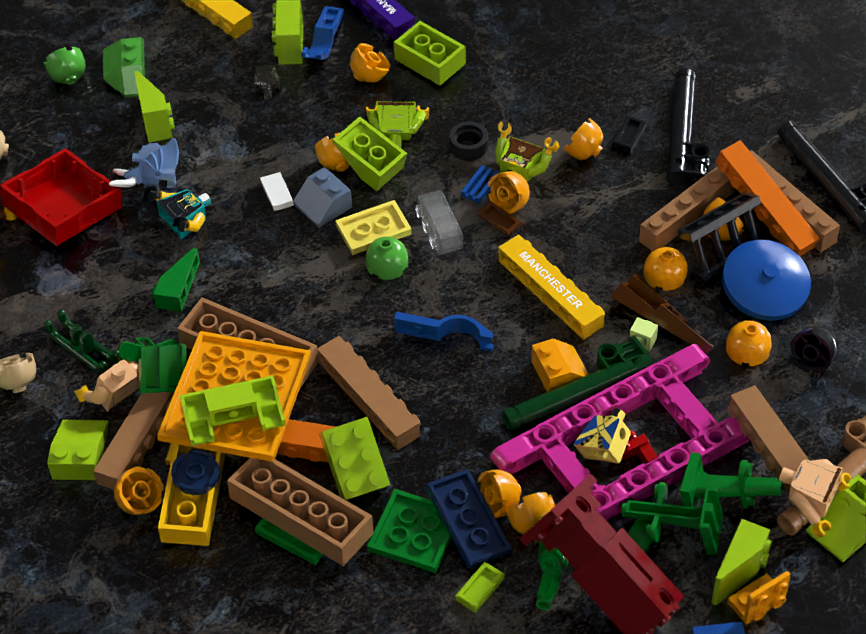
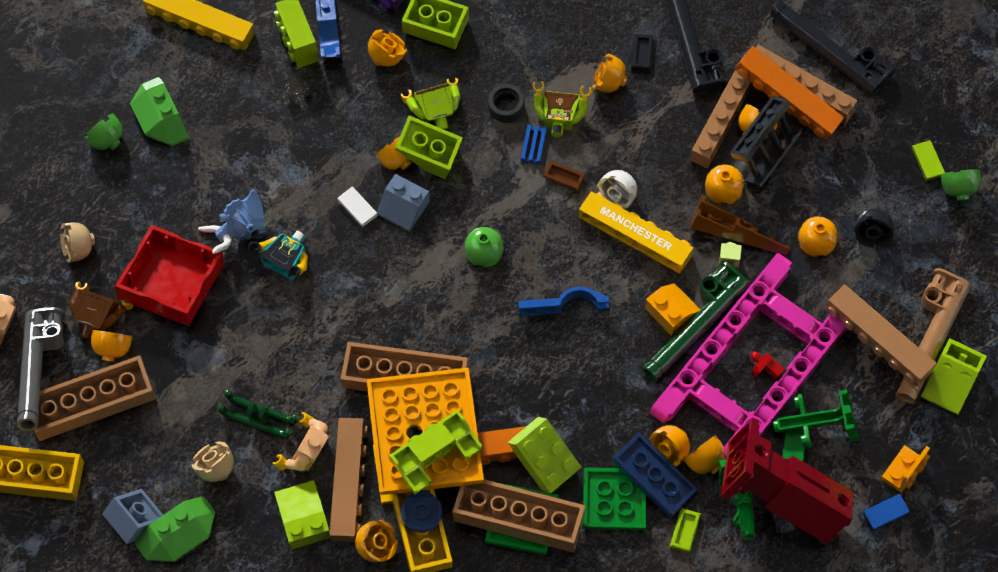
camera: 20 degrees left, 15 degrees up
(154, 110) = (211, 157): lime slope -> none
(158, 364) = (348, 424): green piece -> none
(176, 283) = (312, 330): green slope -> none
(365, 226) = (459, 218): light yellow plate -> none
(369, 392) = (524, 383): medium nougat brick -> none
(439, 222) = (515, 196): clear brick -> none
(509, 191) = (564, 148): light orange cylinder -> none
(549, 239) = (618, 188): none -> white cylinder
(604, 437) = (737, 366): light yellow torso -> none
(741, 486) = (831, 385): green piece -> none
(743, 559) = (885, 433): lime slope -> none
(766, 280) = (812, 170): blue dish -> none
(814, 489) = (925, 368): light nougat torso -> none

